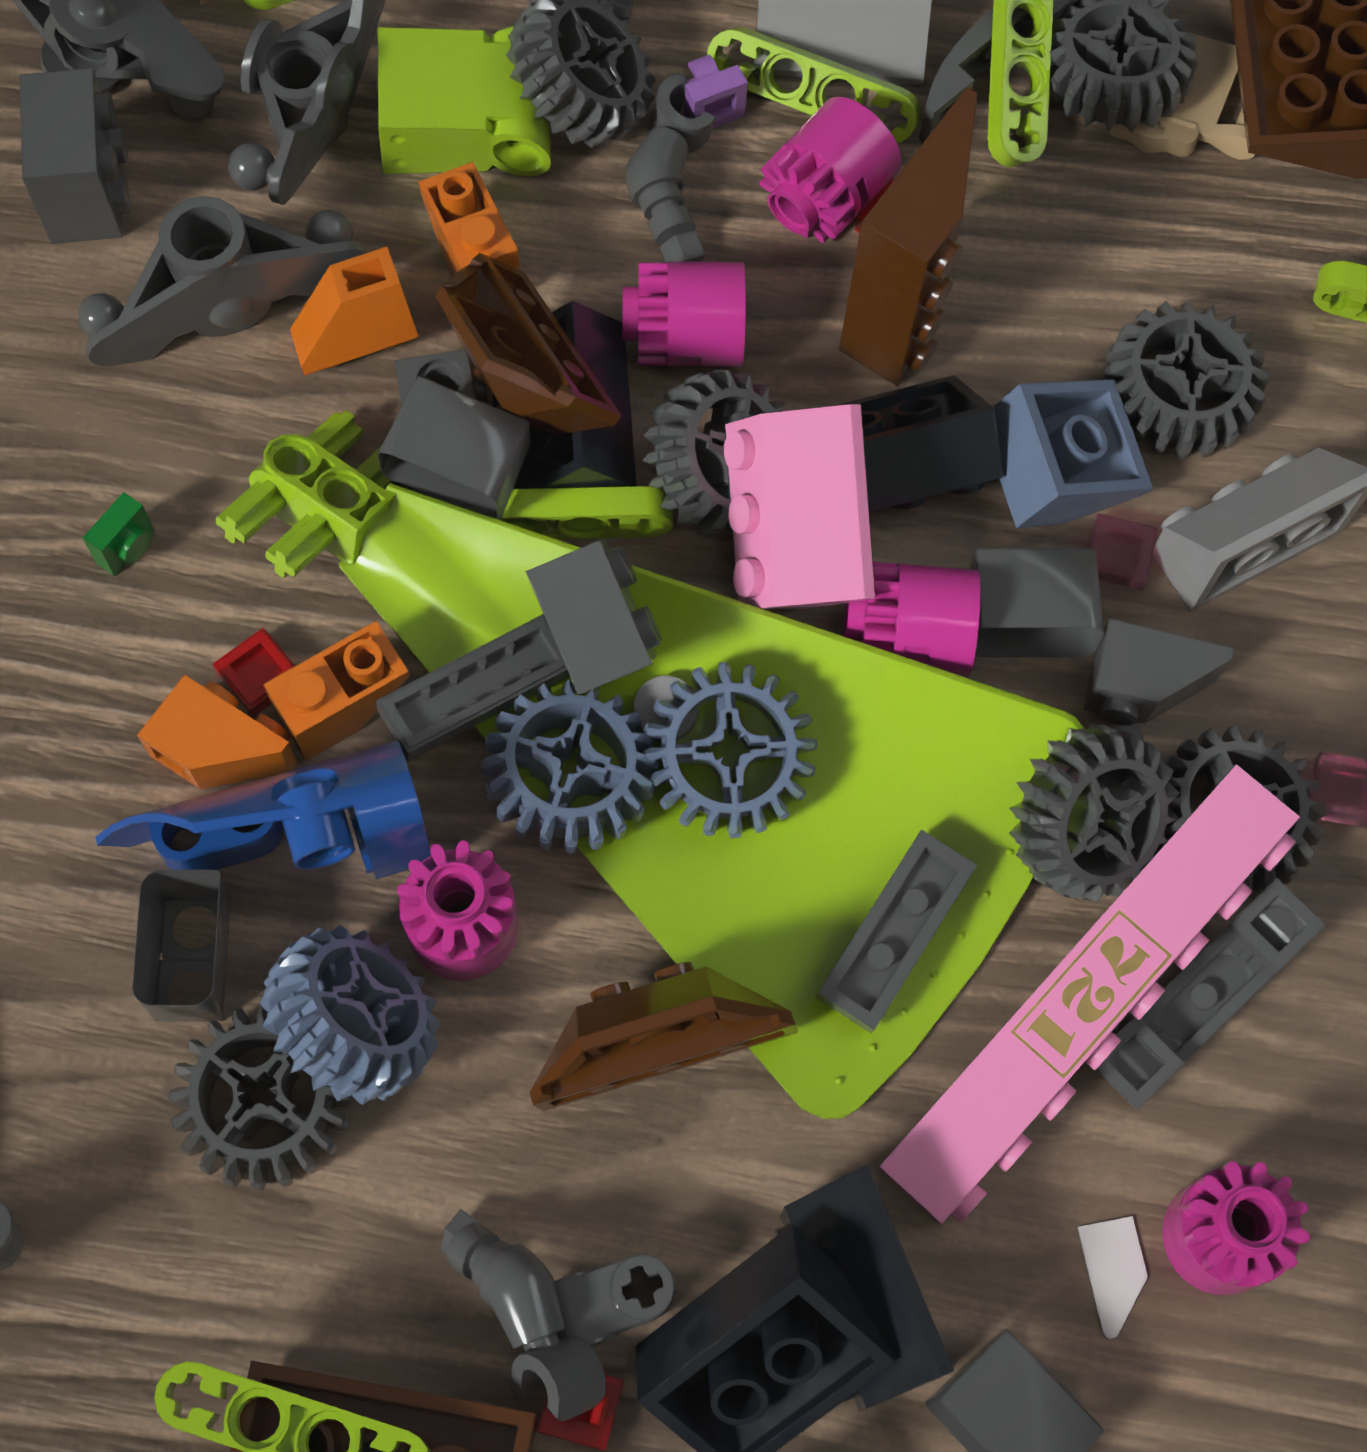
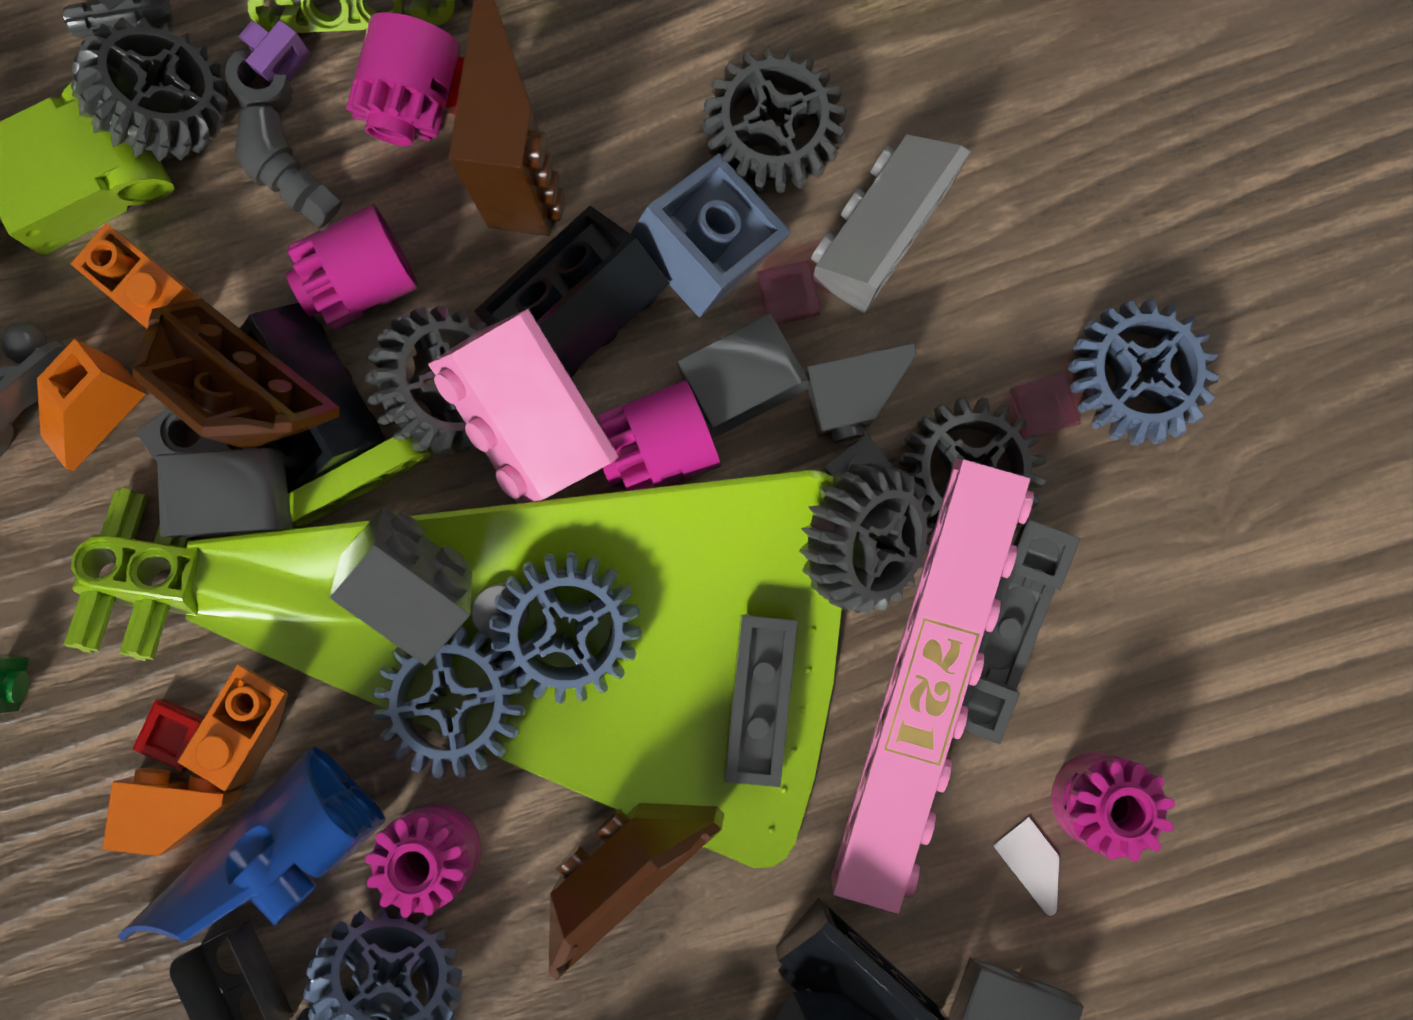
camera: 20 degrees left, 15 degrees up
(472, 688) = (335, 687): dark grey plate -> none

